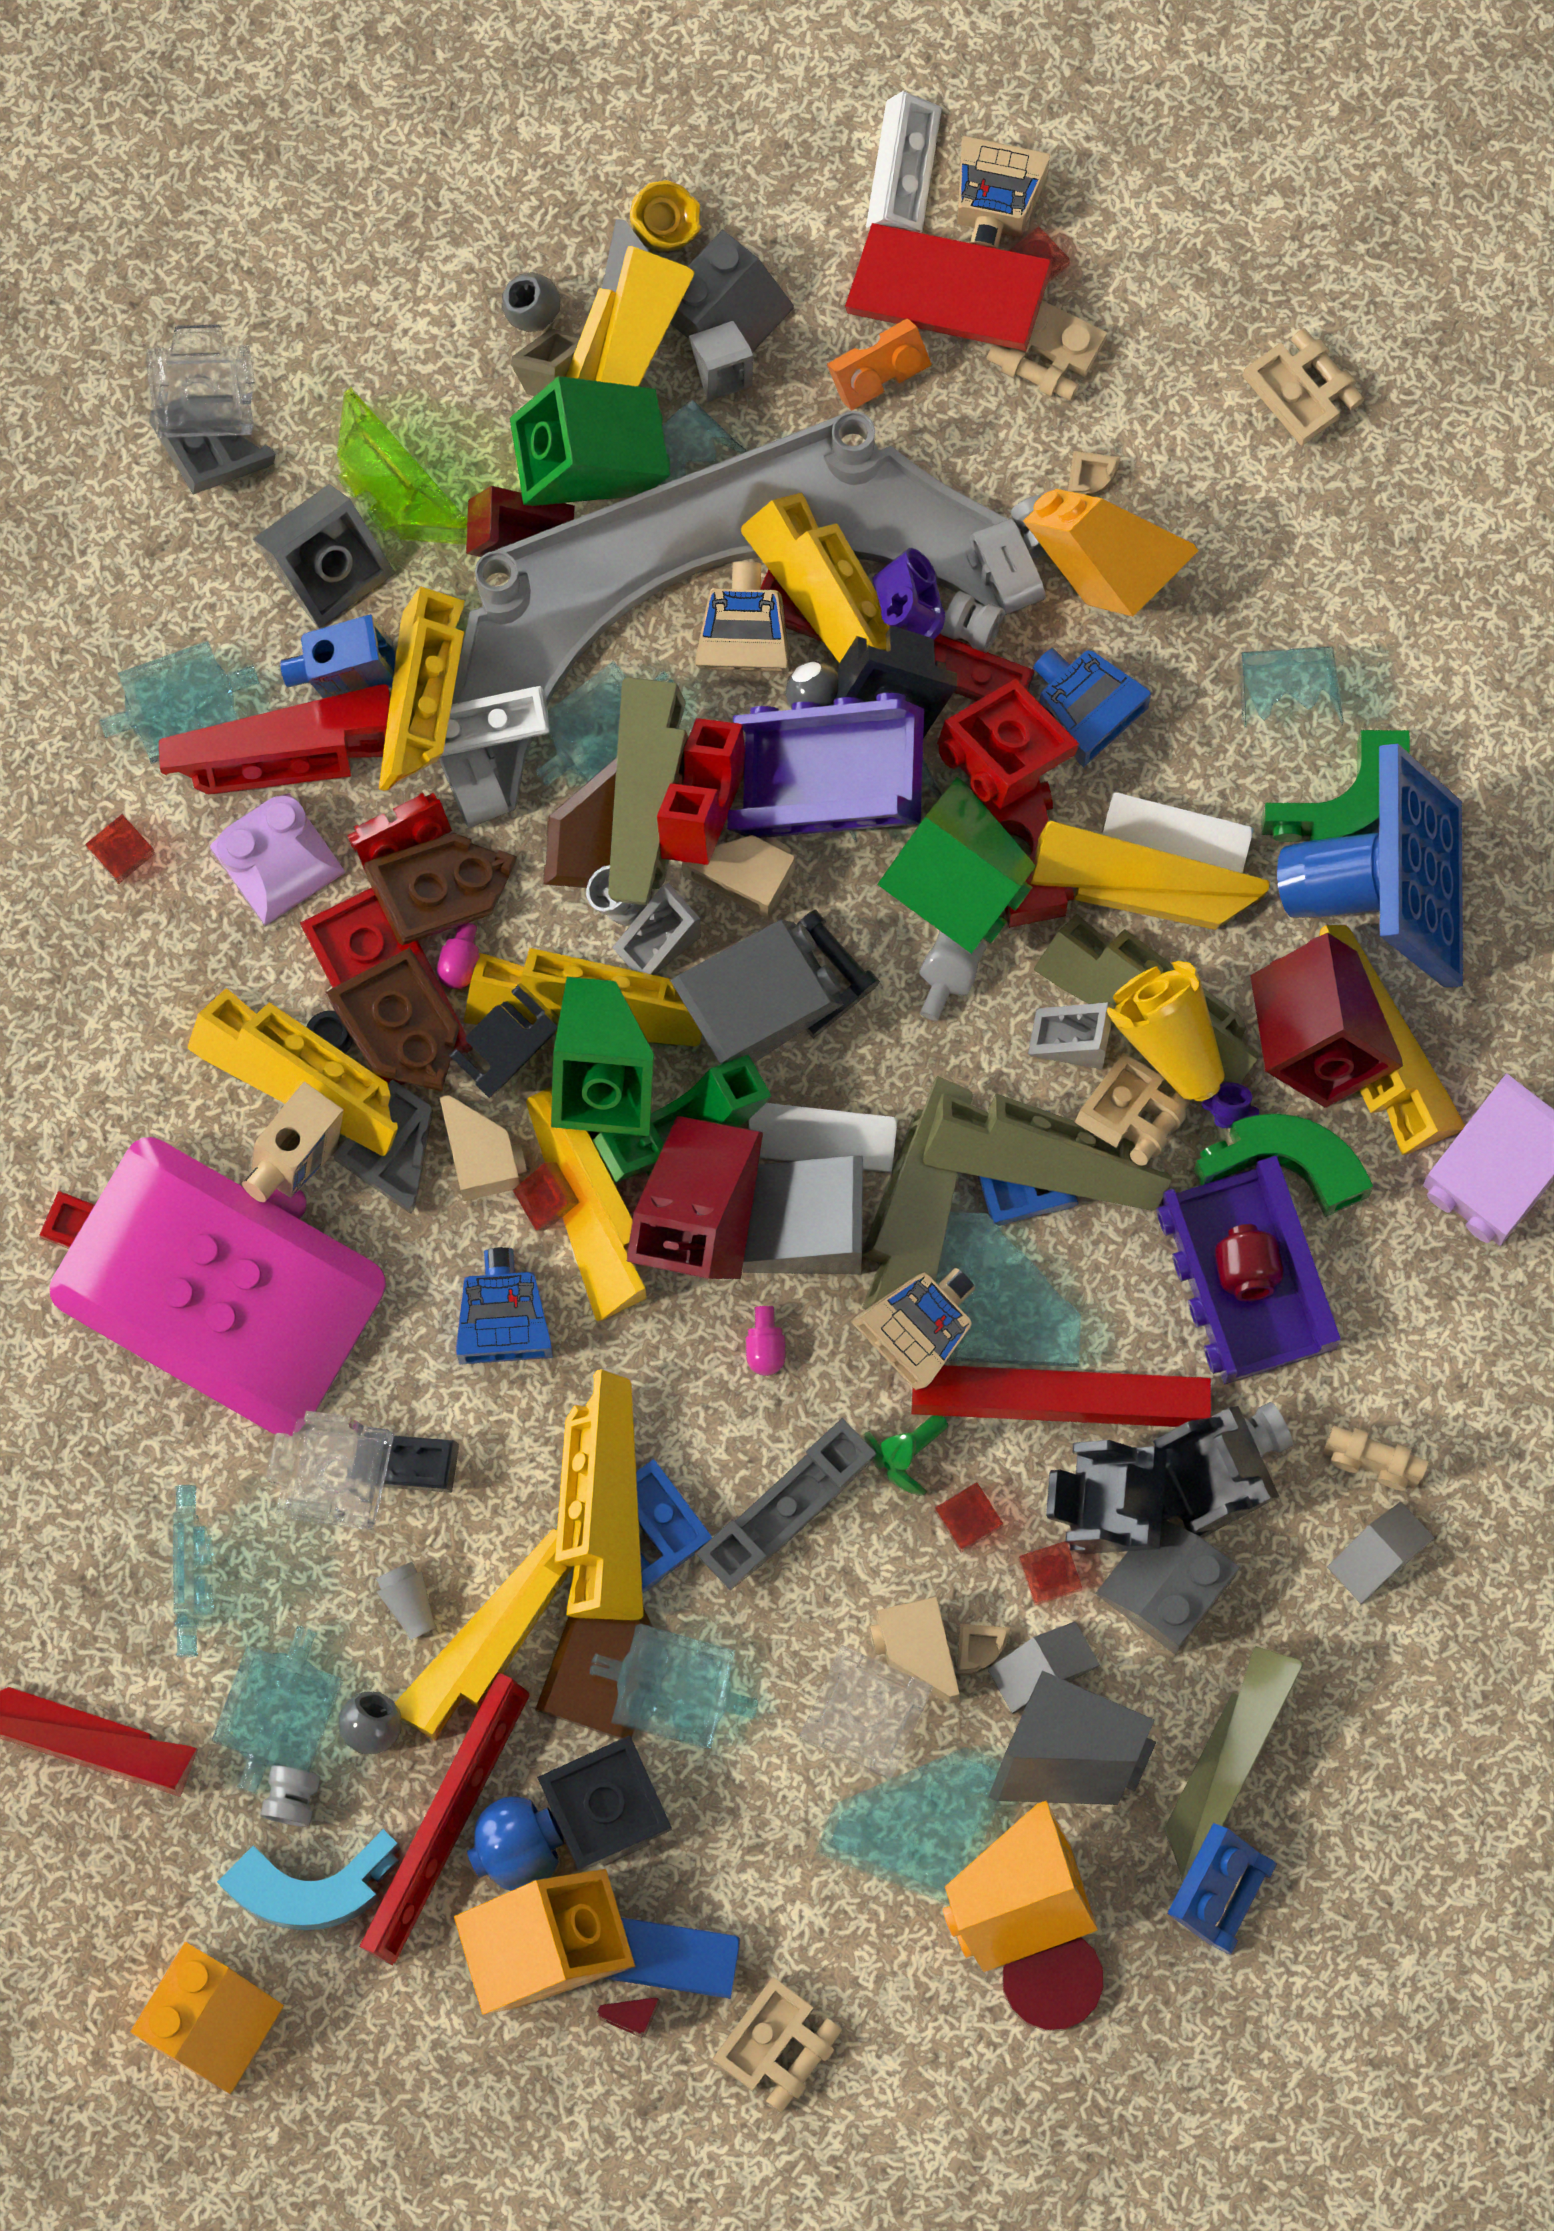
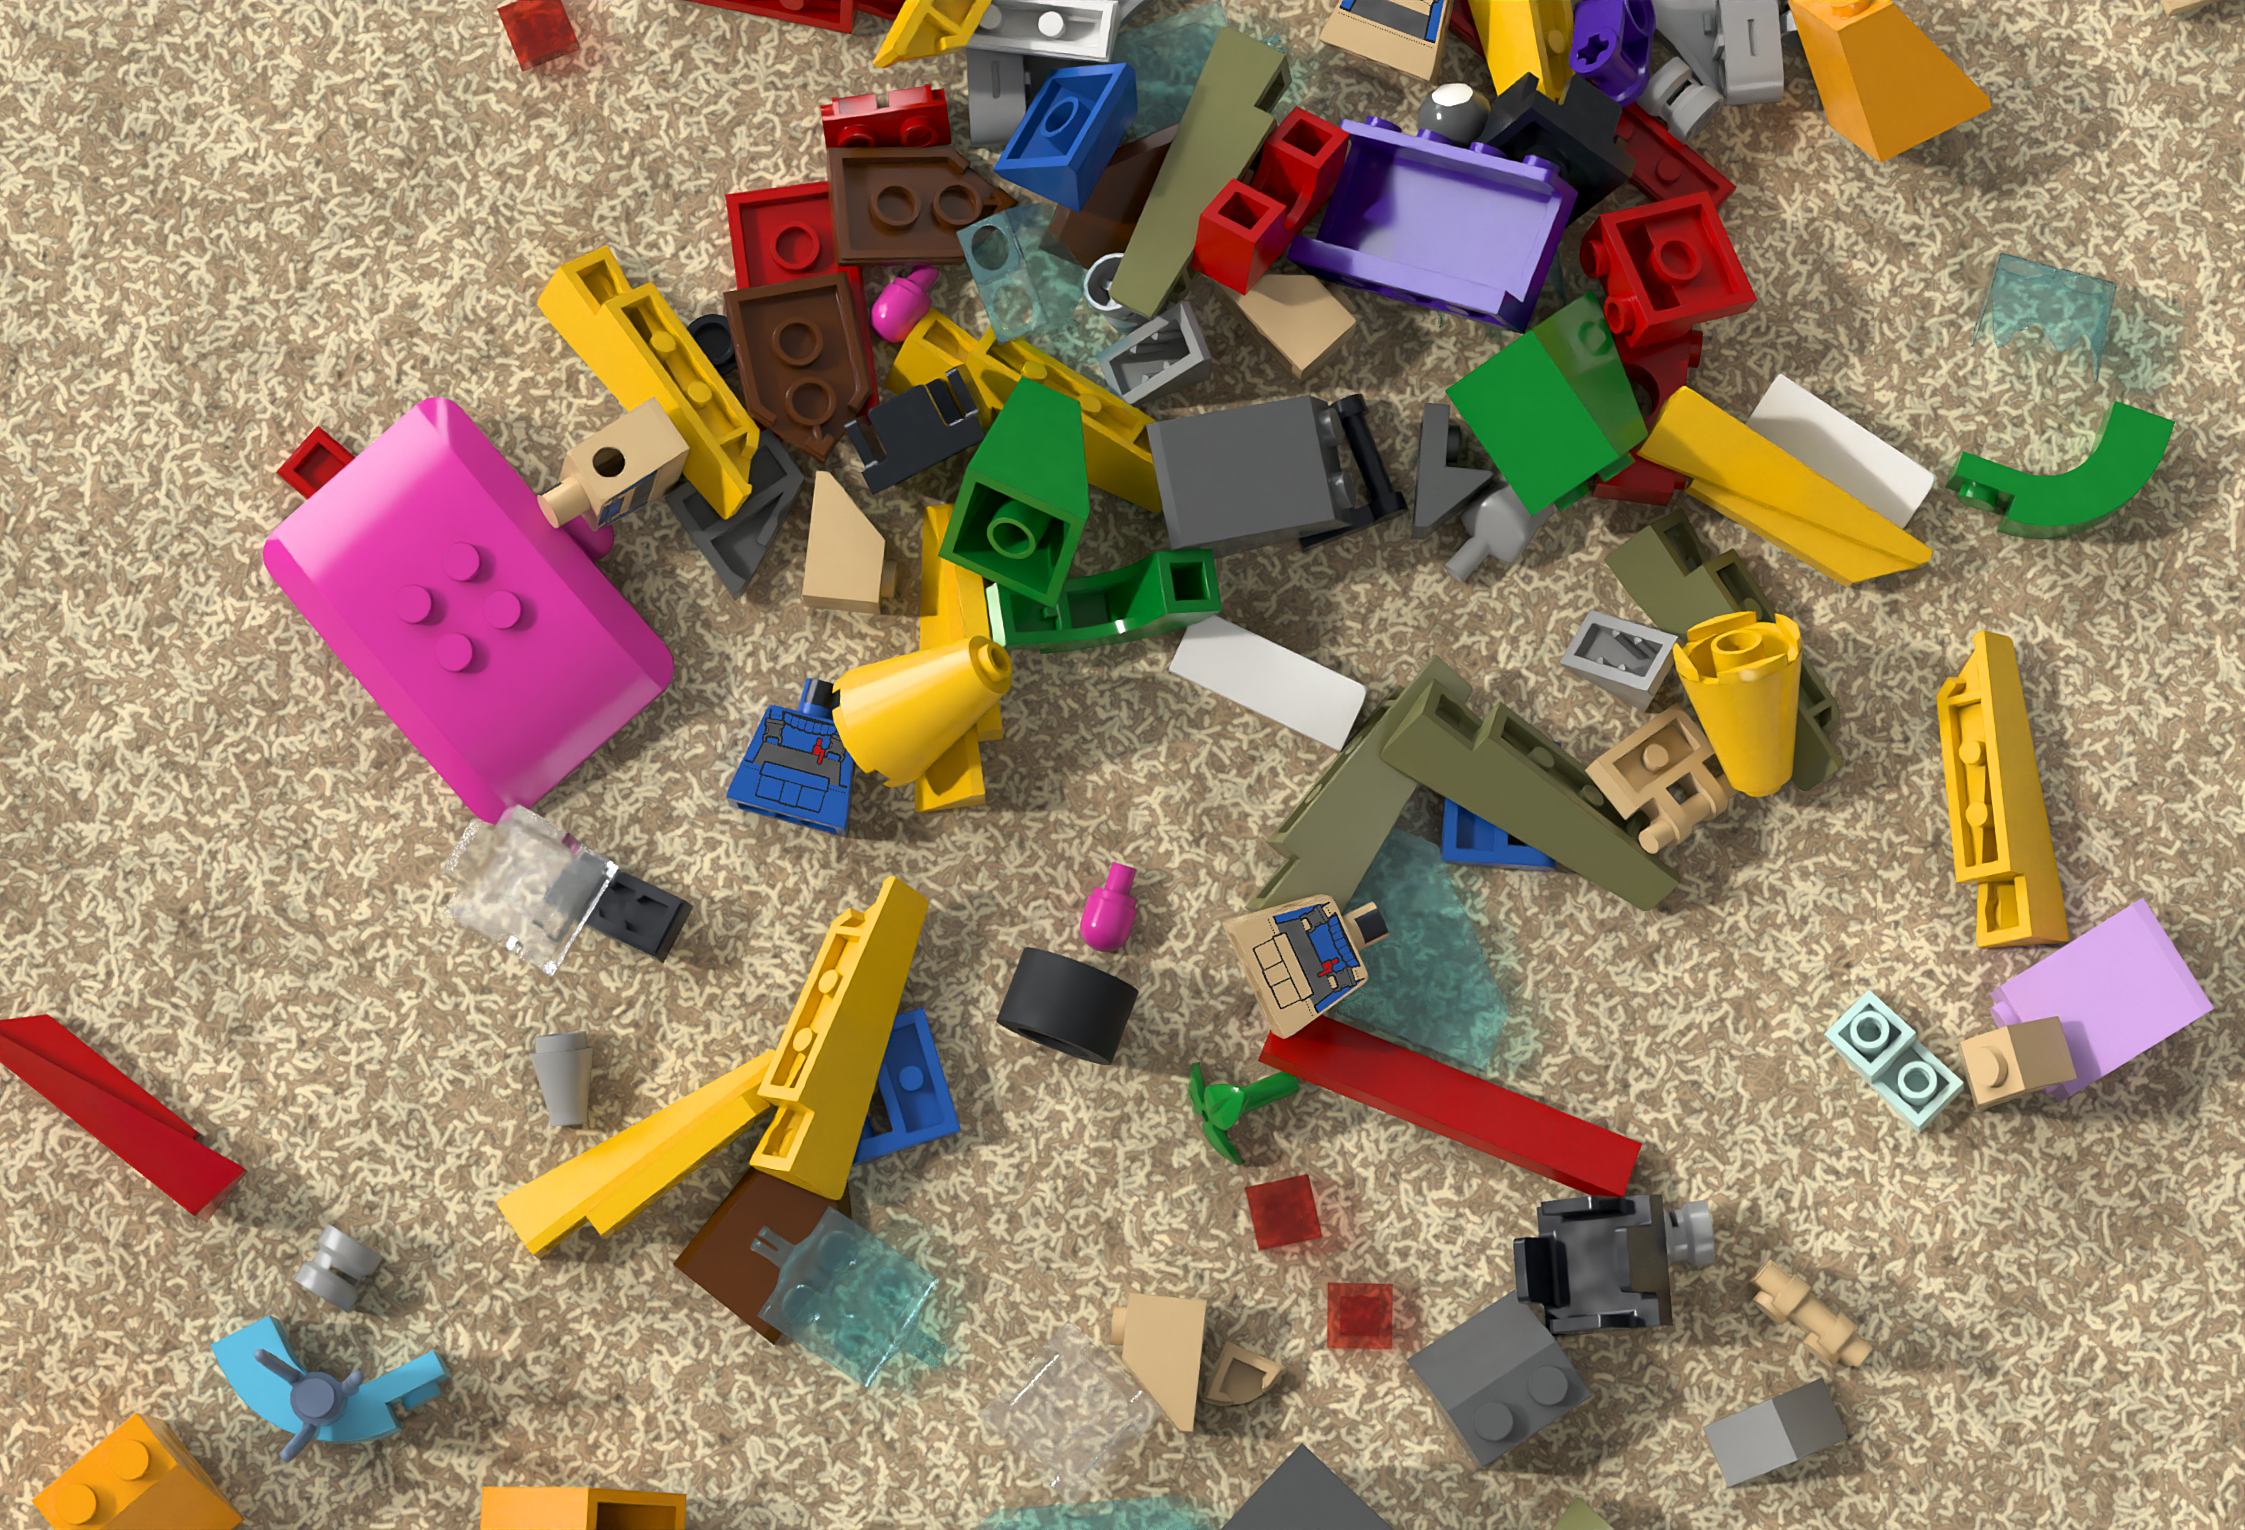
camera: 15 degrees right, 5 degrees up
(191, 1589) = (316, 930): clear light blue plate -> none
(276, 857) = (725, 103): lavender slope -> none
(277, 1709) = (359, 1156): clear light blue plate -> none
(310, 1888) = (314, 1399): none -> sand blue plant
(370, 1722) = (465, 1212): dark grey piece -> none
(445, 1819) = (514, 1363): red tile -> none
(515, 1843) = (590, 1423): blue plant -> none
(539, 791) = (1071, 132): none -> blue slope
(546, 1196) = (904, 628): clear red plate -> none
(560, 900) = (1050, 277): none -> clear light blue piece
(574, 1239) = (918, 704): none -> yellow cone
(605, 1804) = (712, 1414): black panel -> none
(698, 1201) = (1085, 711): dark red slope -> none
(759, 1420) = (1067, 1006): none -> black piece
(787, 1505) = (1065, 1121): dark grey slope -> none
(807, 1217) = (1207, 771): slope -> none
(896, 957) = (1442, 489): none -> dark grey slope
(1058, 1652) = (1325, 1422): light grey slope -> none
(1090, 699) = (1791, 247): blue torso -> none
(1111, 1499) = (1464, 1253): black panel -> none
(1230, 1104) = (1787, 815): dark purple plate -> none
(1249, 1263) = (1739, 1019): dark red head -> none
(1258, 1333) = (1735, 1029): dark purple panel -> none
(1301, 1146) = (1860, 898): green arch -> none
(1322, 1022) = (1936, 750): dark red slope -> none
(1370, 1257) = (1893, 1061): none -> light aqua slope
(1403, 871) = (2102, 597): blue piece -> none
(1457, 1223) = (2016, 1061): none -> tan slope

